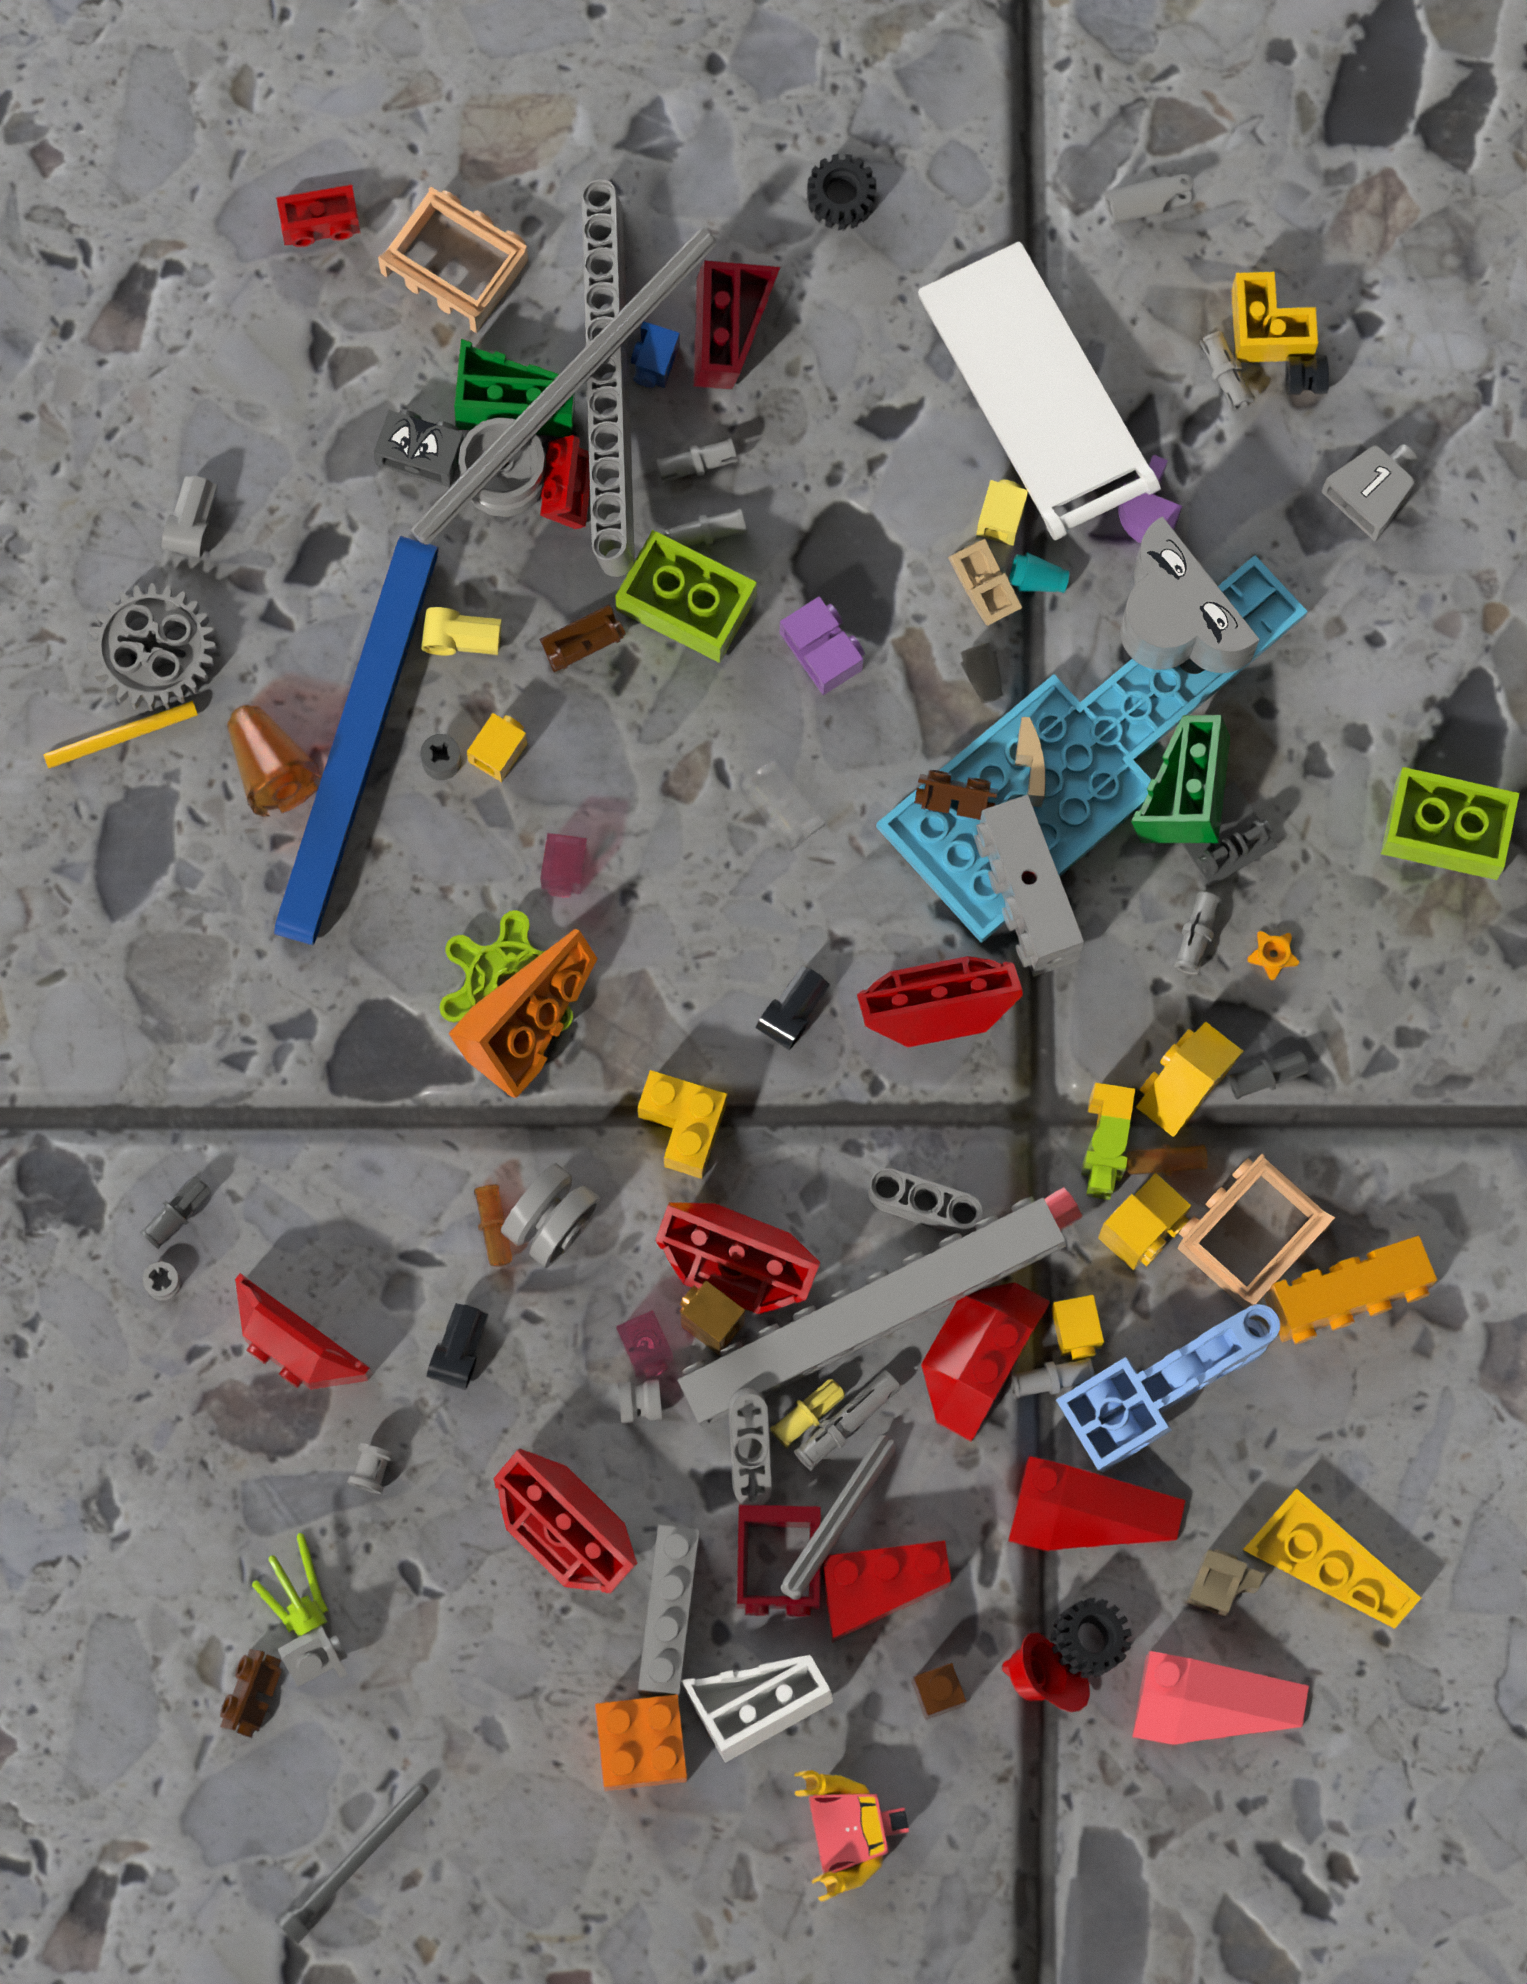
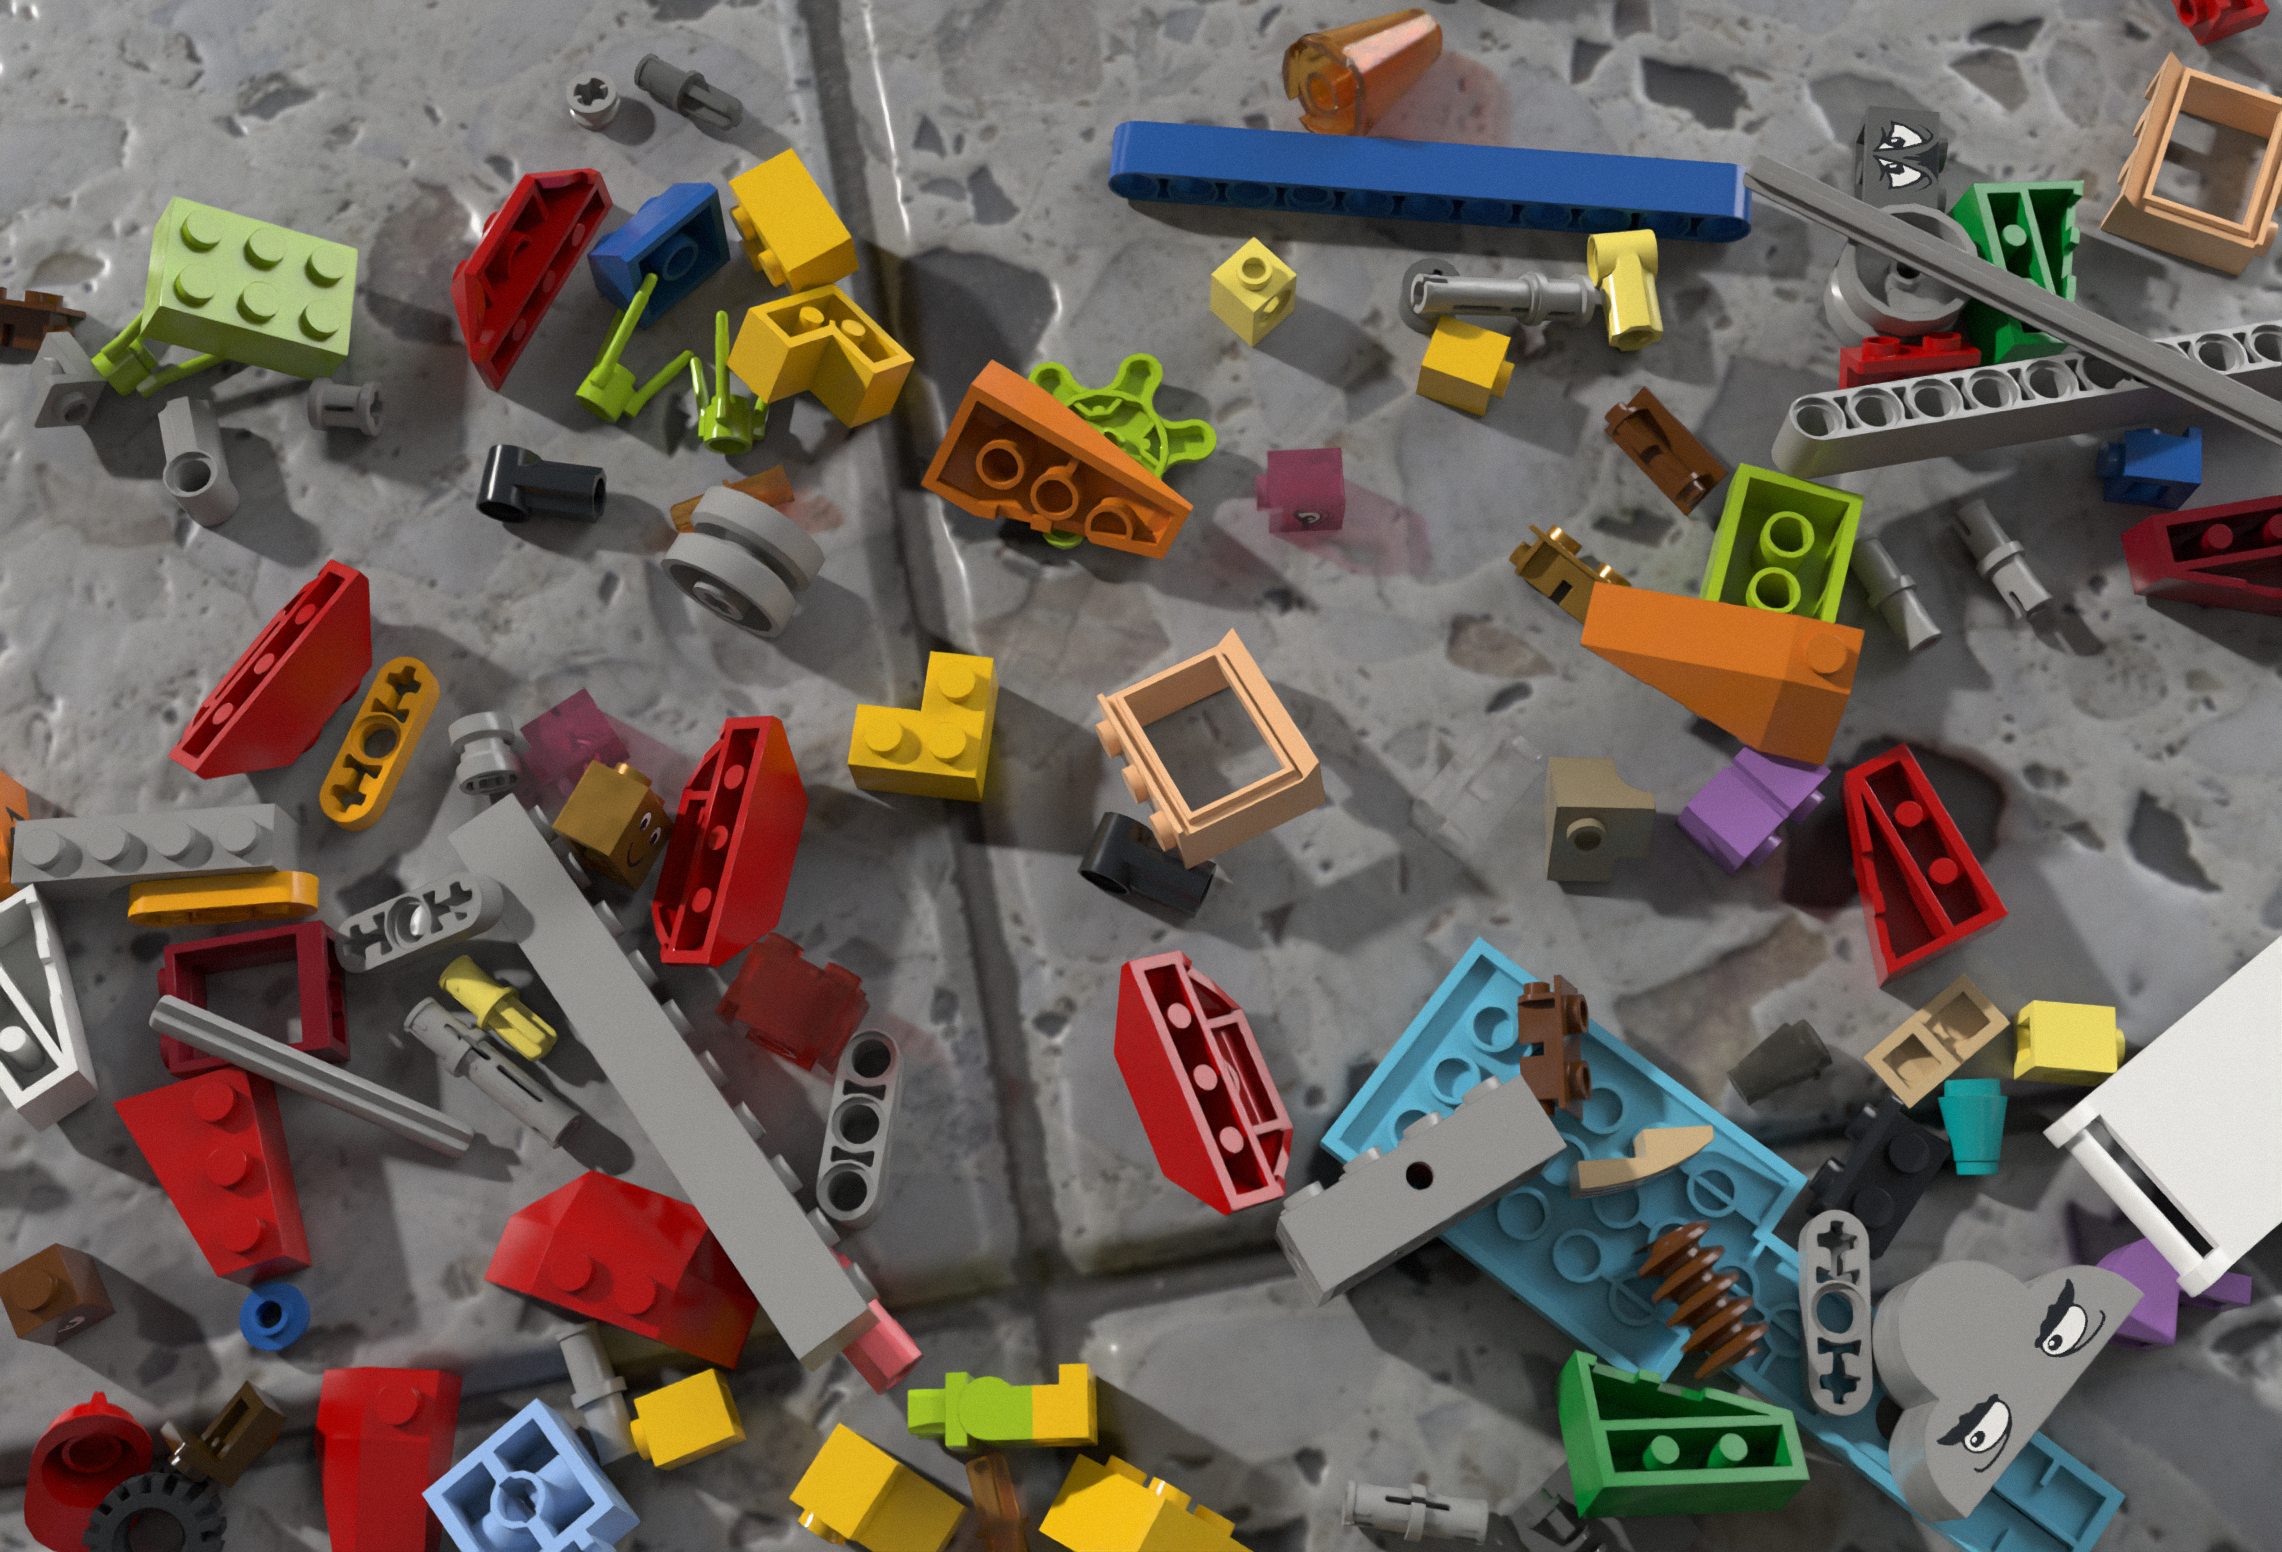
camera: 85 degrees right, 5 degrees down
(289, 1510) = (249, 291): none -> lime brick
(303, 1243) = (671, 236): none -> blue slope
(319, 1146) = (790, 226): none -> yellow brick
(385, 1571) = (197, 460): none -> light grey piece
(393, 1293) = (608, 385): none -> lime plant
(408, 1140) = (821, 346): none -> yellow brick
(417, 866) = (1253, 292): none -> light yellow brick
(435, 1216) = (727, 423): none -> lime plant
(462, 695) = (1528, 299): none -> light grey pin
(642, 722) = (1554, 561): none -> pearl gold hinge
(647, 1478) = (382, 695): none -> light orange beam
(704, 1575) = (223, 899): none -> light orange beam
(744, 992) = (1240, 814): none -> light nougat window
(753, 630) = (1747, 669): none -> orange wedge
(817, 740) = (1592, 819): none -> dark tan brick
(848, 1225) = (794, 1004): none -> clear red brick
(885, 567) = (1912, 867): none -> red wedge
(972, 1578) = (293, 1321): none -> blue plate
(1040, 1592) = (232, 1441): none -> dark brown bracket
(1057, 636) = (1879, 1172): none -> black bracket
(1113, 746) = (1701, 1299): none -> reddish brown piece
(1140, 694) = (1853, 1366): none -> light grey beam

